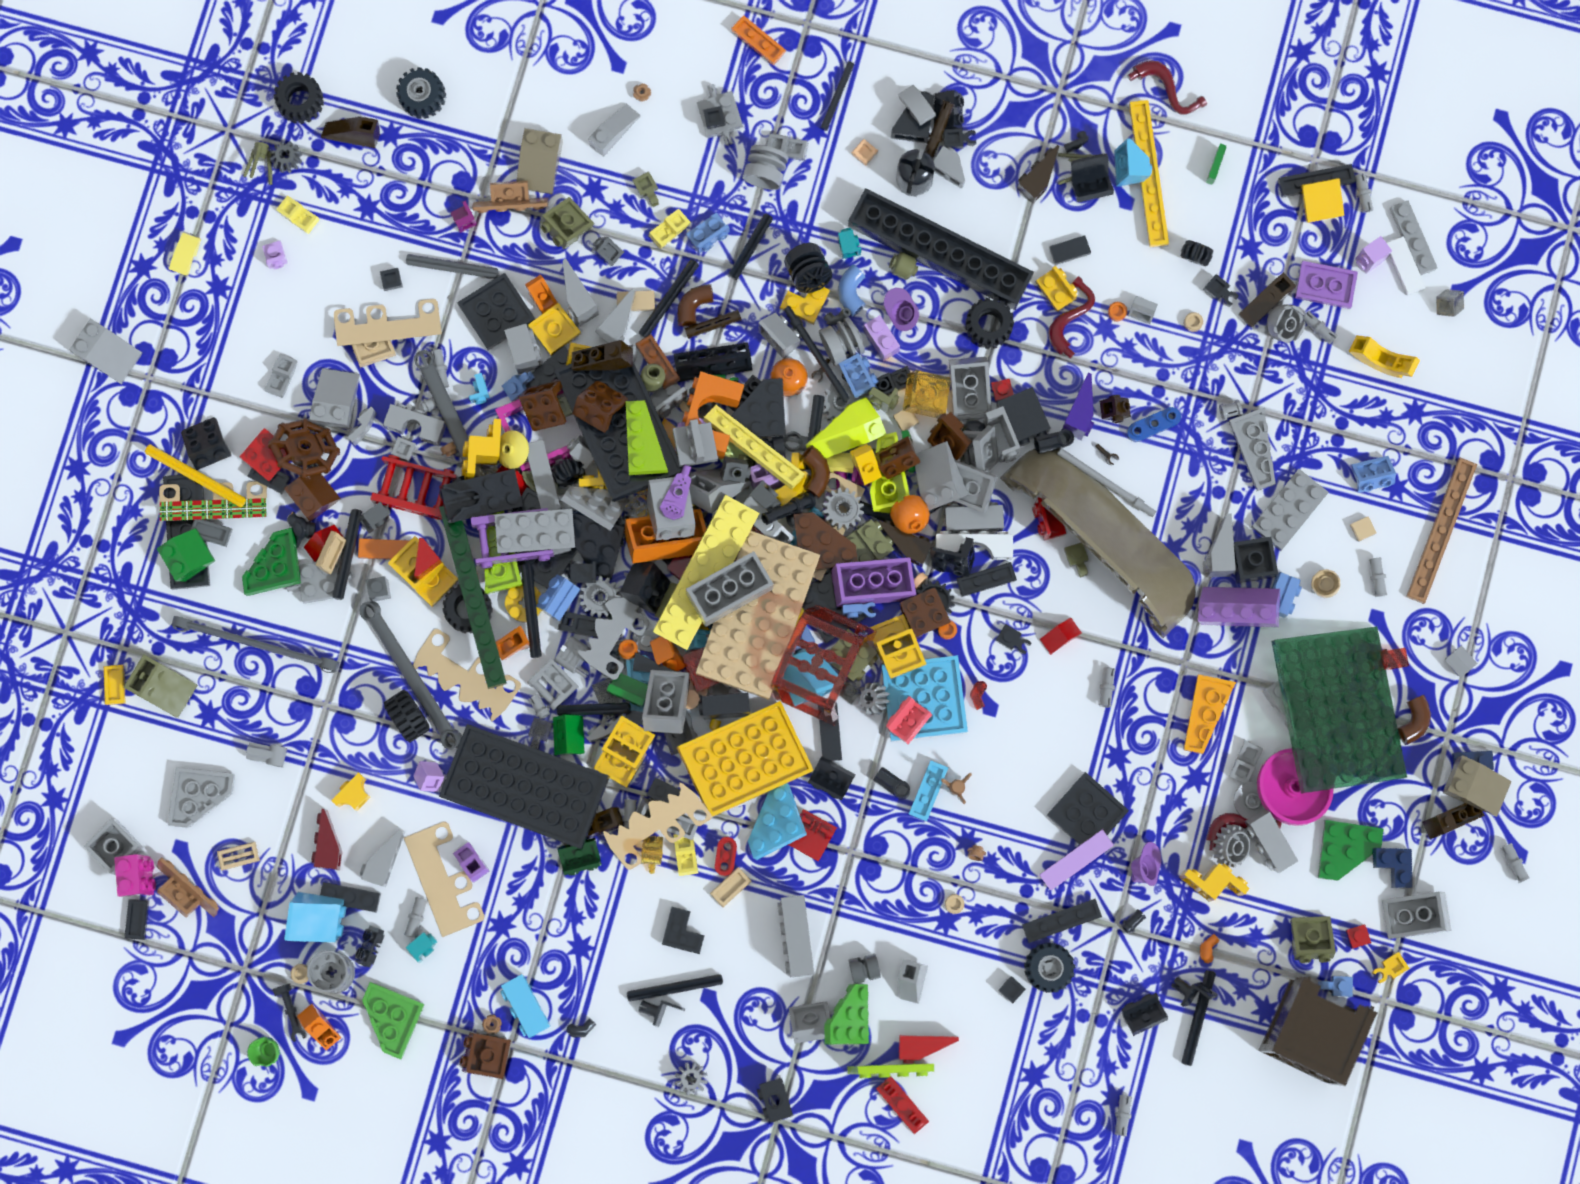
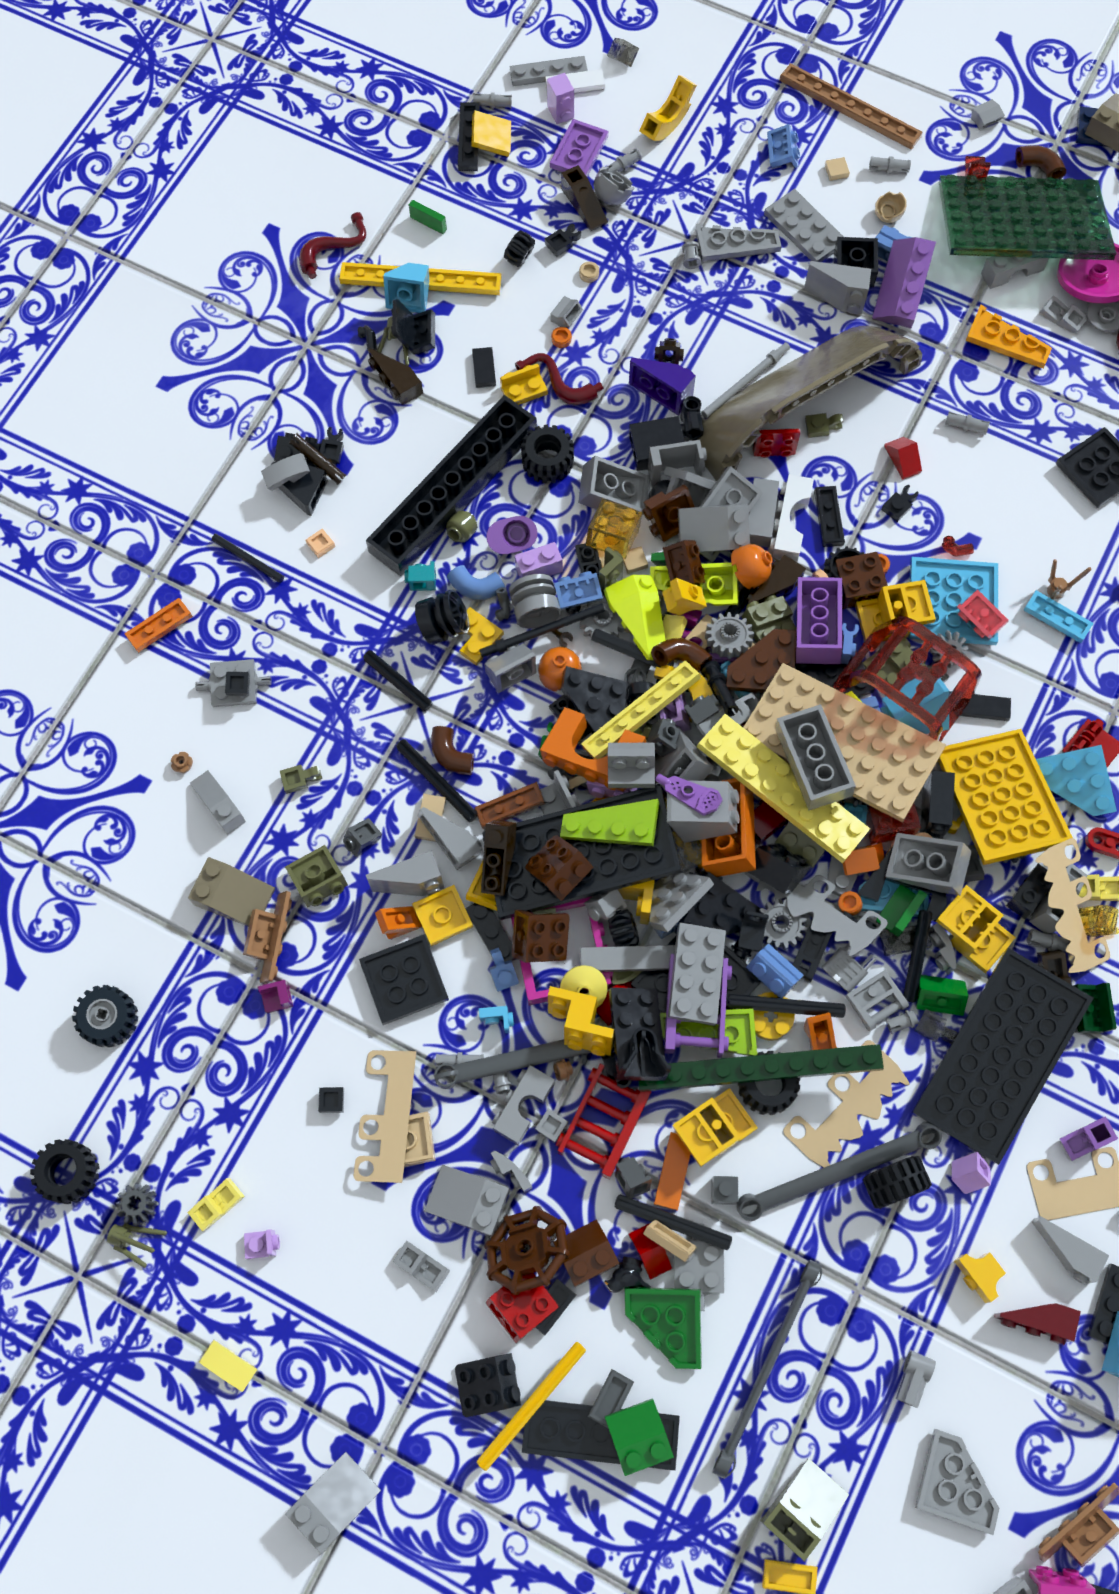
camera: 75 degrees left, 10 degrees down
(212, 509) = (581, 1382): piece -> none
(255, 852) = (1032, 1444): tan tile -> none
(354, 130) = (128, 1110): dark brown slope -> none
(425, 560) = (708, 1113): red slope -> none
(452, 266) = (333, 1023): dark grey axle -> none
(521, 343) = (460, 952): light grey brick -> none
(653, 377) = (531, 806): olive head -> none
(669, 229) = (353, 763): light yellow slope -> none
(692, 331) = (476, 714): dark brown pin -> none
(708, 233) = (369, 722): medium blue bracket -> none
(713, 363) = (527, 744): black fence -> none
(765, 167) = (311, 641): light grey wheel -> none
(793, 148) = (292, 621): light grey slope -> none
(831, 778) = (1033, 711): black bracket -> none
(891, 782) = (1046, 650): black piece -> none
(911, 164) = (360, 490): black cylinder -> none
(949, 166) = (362, 460): light grey slope -> none
(954, 562) = (811, 533): black bracket -> none
(1001, 389) = (623, 457): red plate -> none
(1107, 454) = (716, 375): hand -> none
(1148, 430) = (689, 333): blue plate -> none

